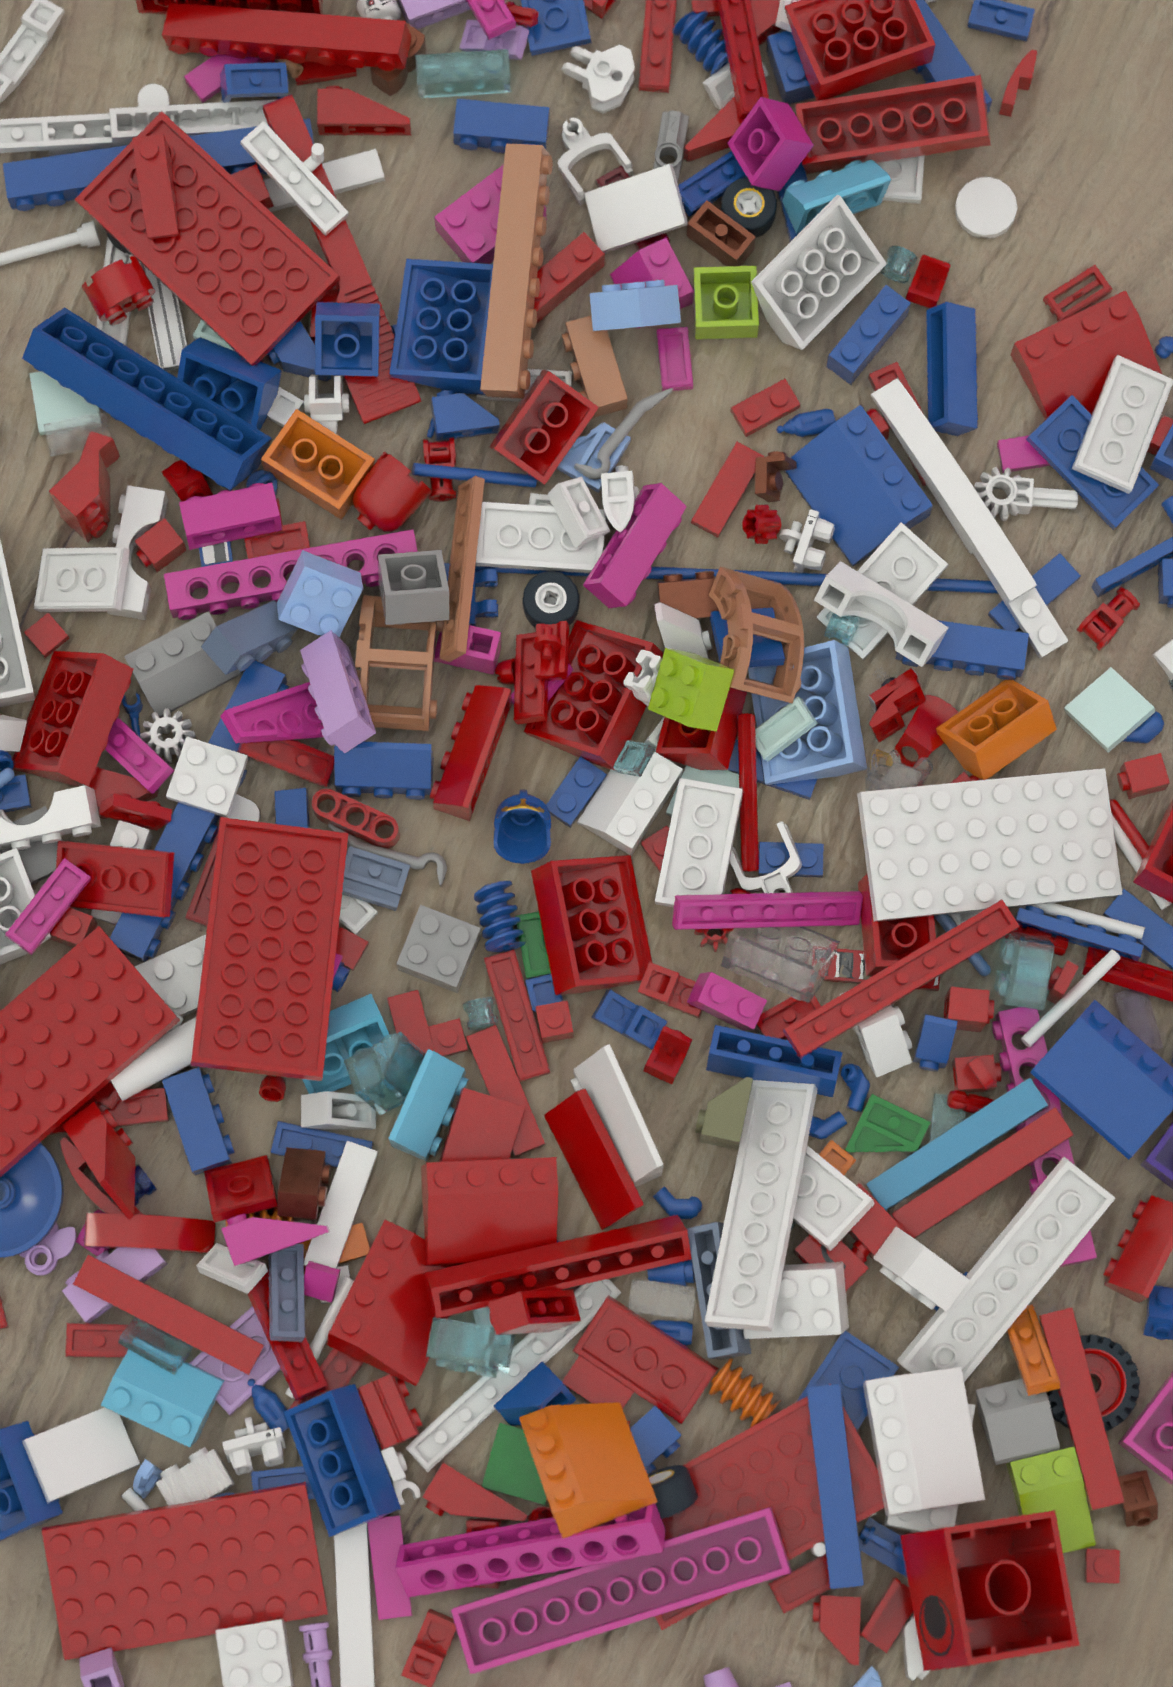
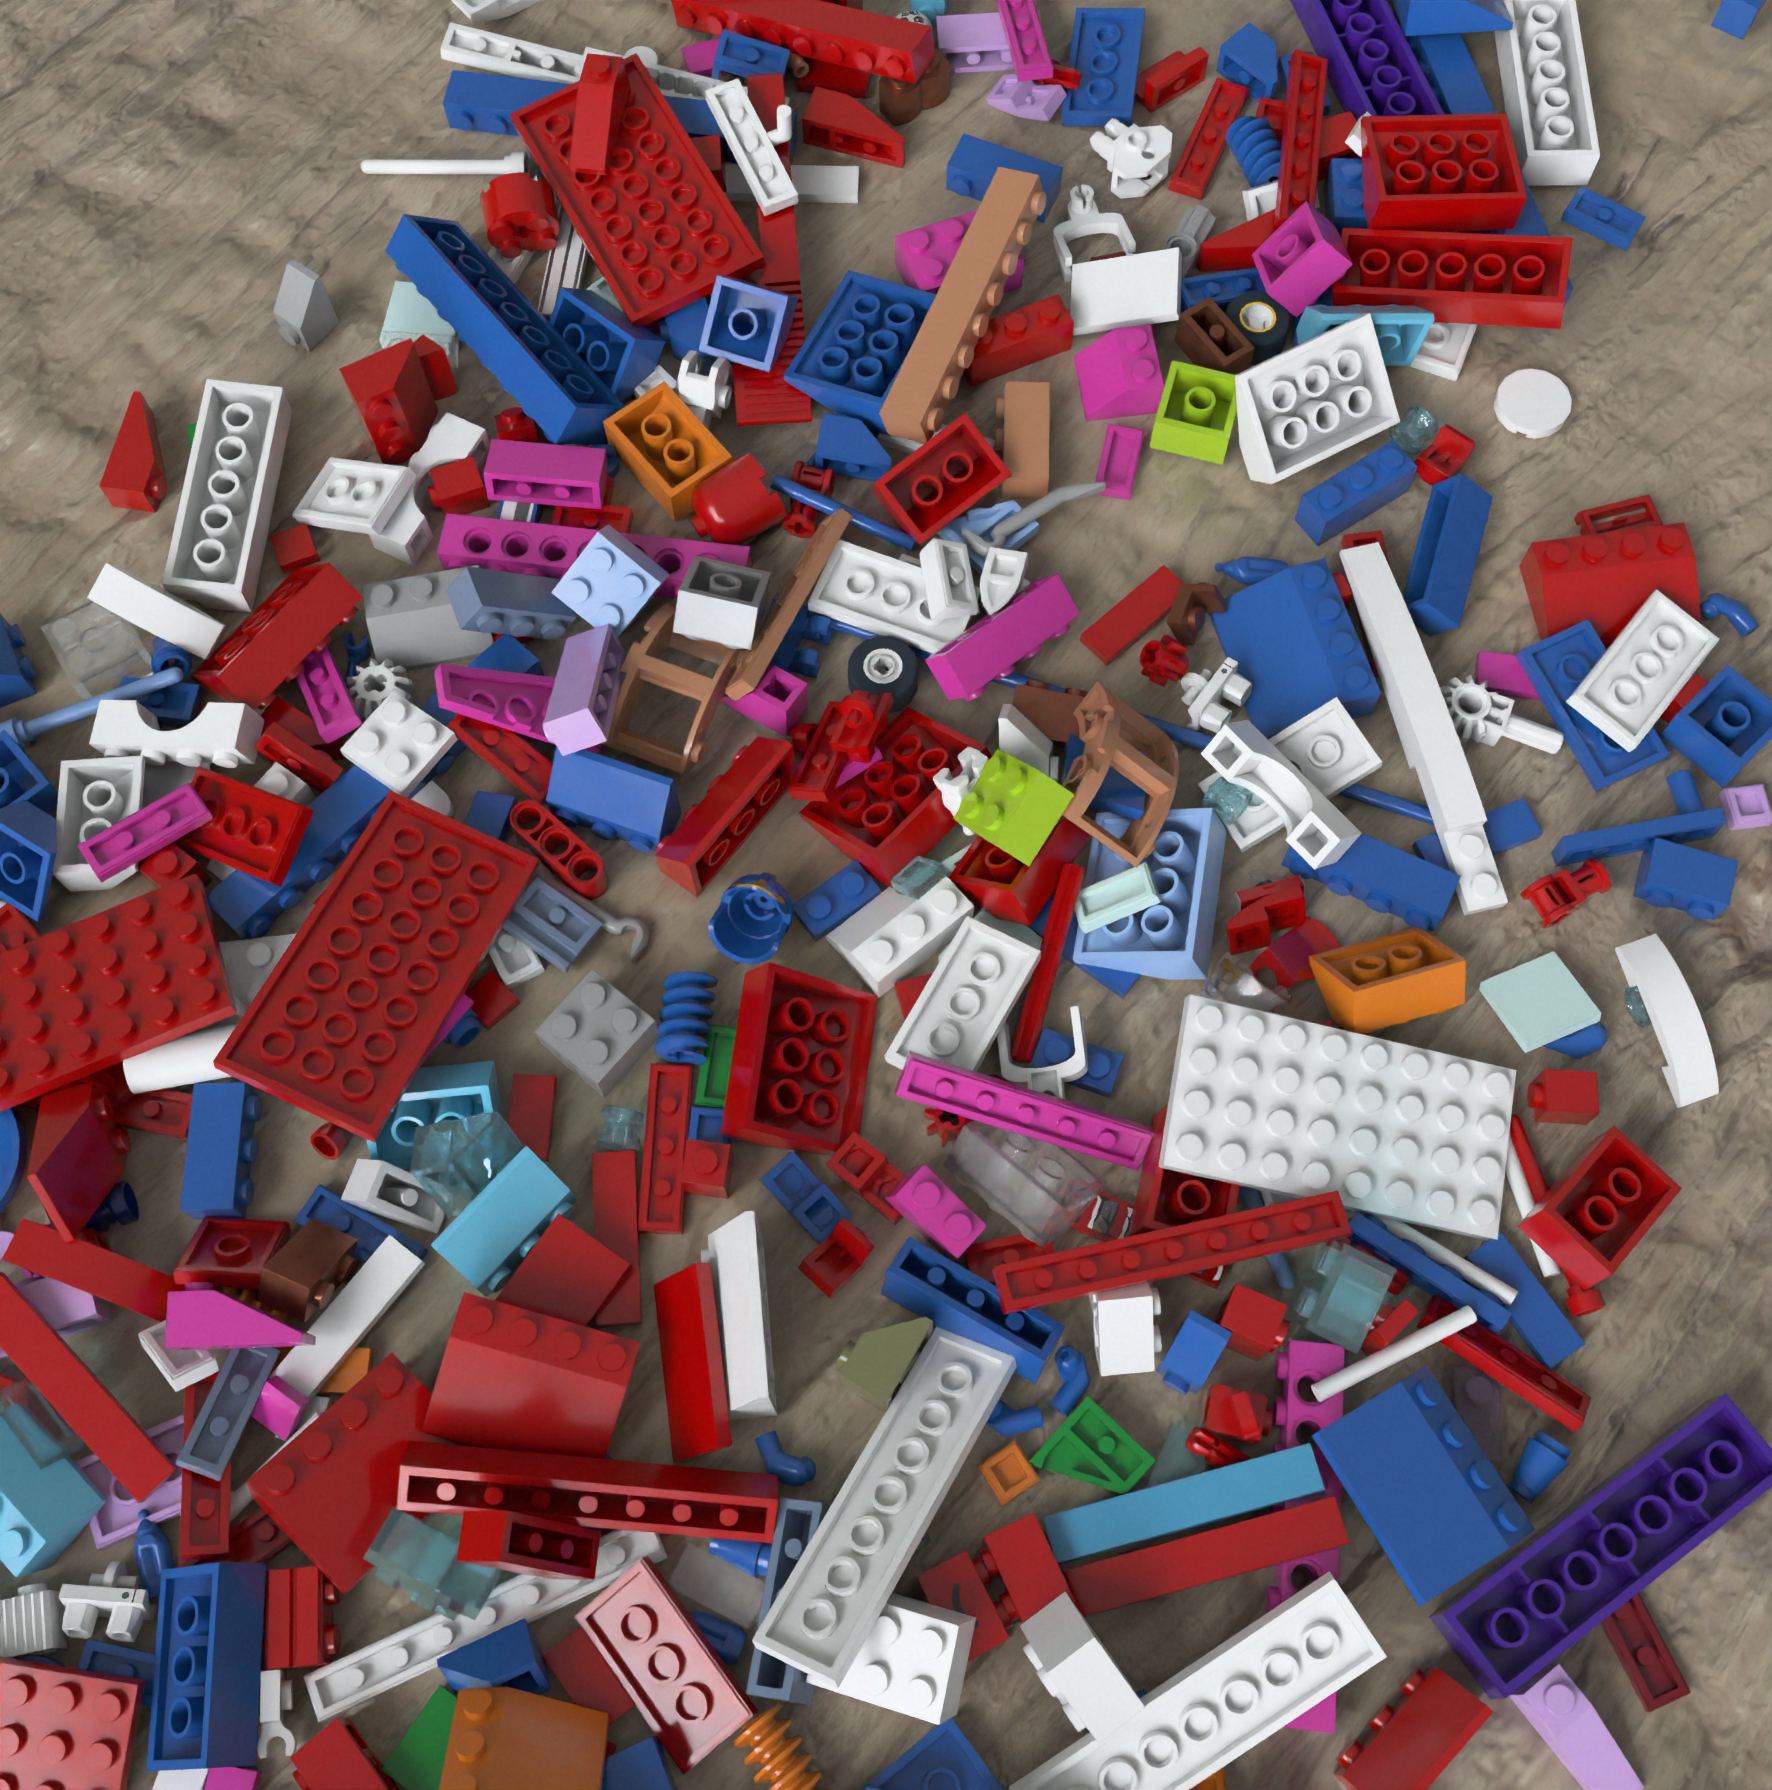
camera: 20 degrees right, 10 degrees down
(448, 1038) = (570, 1149): red plate -> none
(463, 73) = (981, 113): clear light blue brick -> none
(635, 305) = (1090, 378): light blue brick -> none
(765, 407) = (1208, 540): red plate -> none
(828, 1201) = (981, 1525): white plate -> none
(1021, 80) = (1606, 284): red slope -> none

